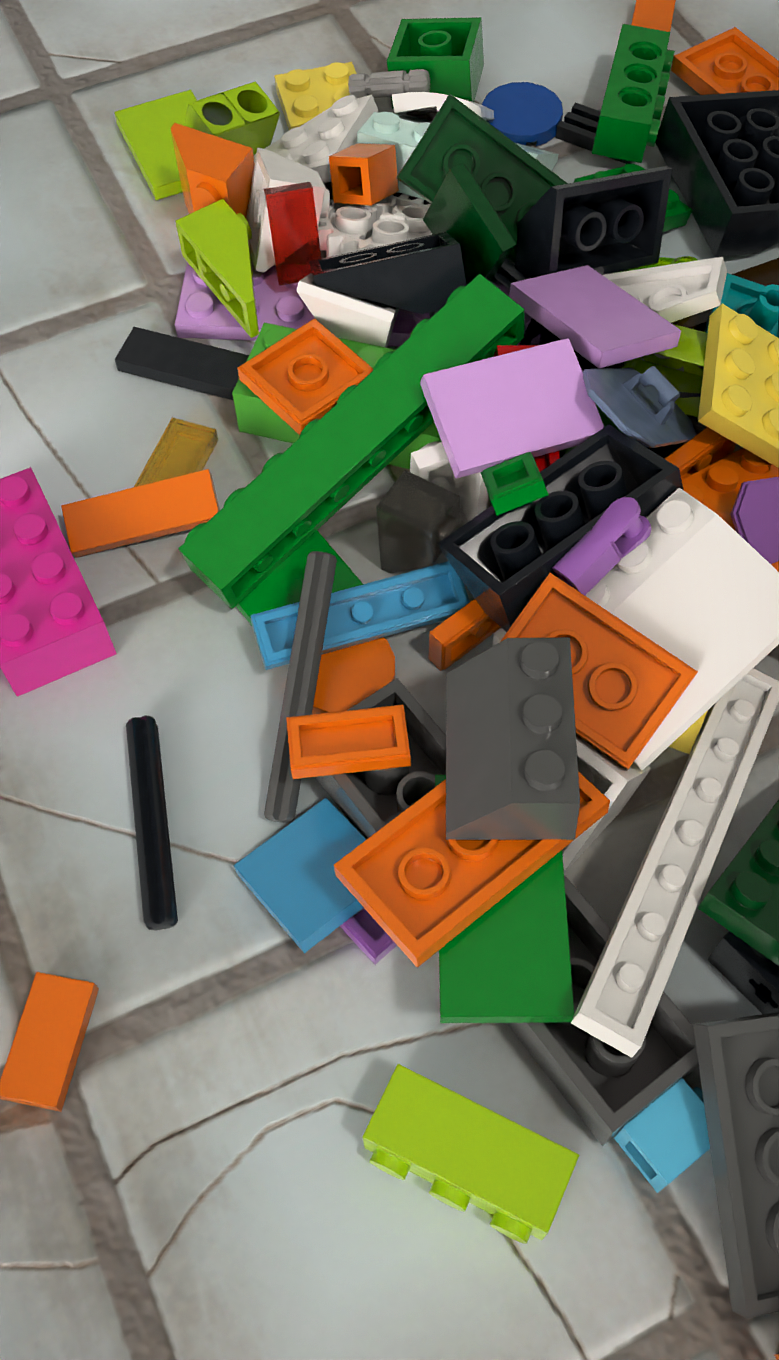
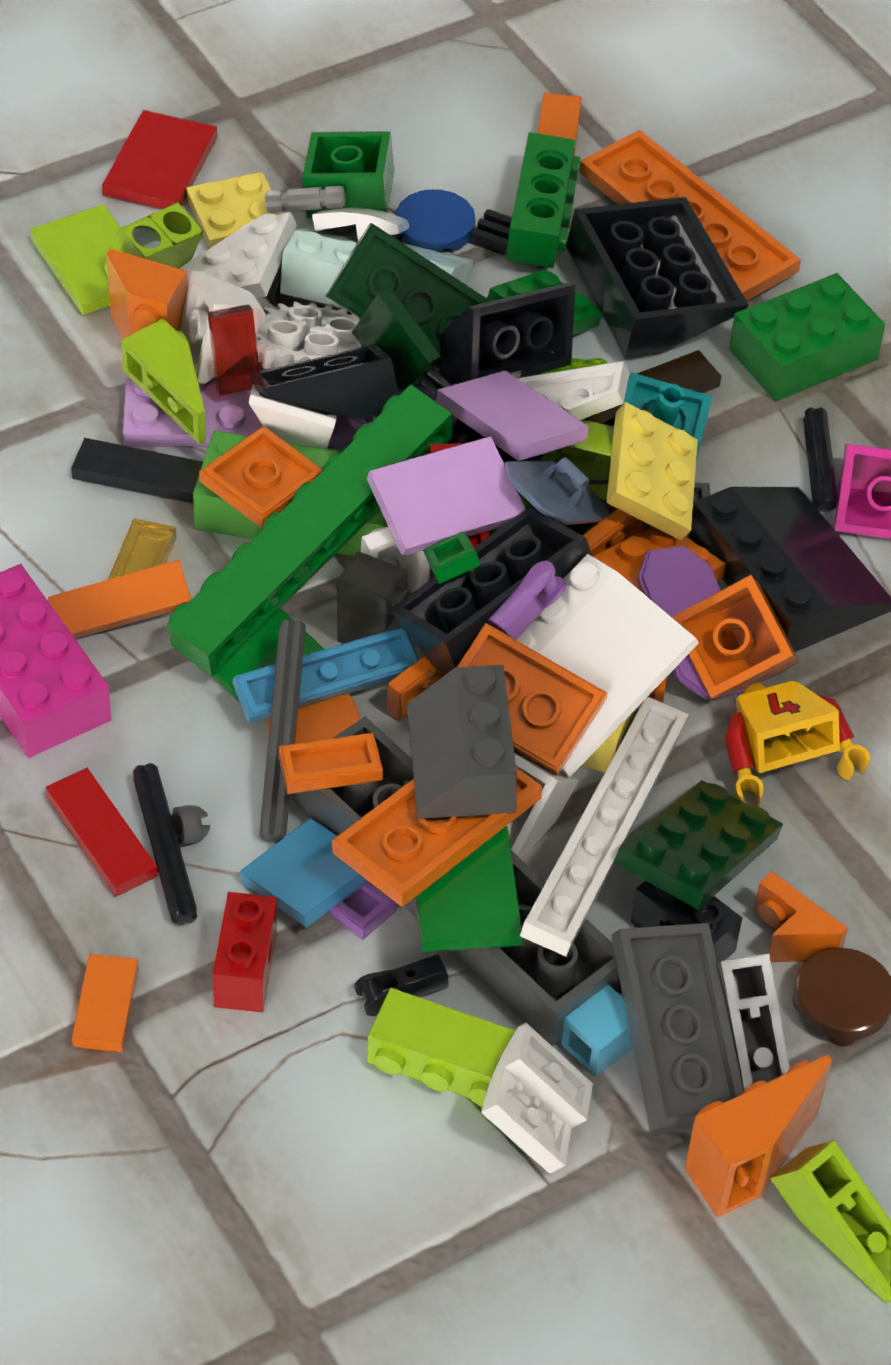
camera: 10 degrees left, 10 degrees down
(81, 801) = (101, 832): none -> red tile
(180, 797) = (189, 824): none -> dark grey hinge
(222, 986) = (245, 952): none -> red brick
(253, 48) = (159, 160): none -> red tile
(363, 174) = (292, 290): orange brick -> none
(425, 1038) = (414, 978): none -> black bar
(578, 1252) = (537, 1098): none -> white slope

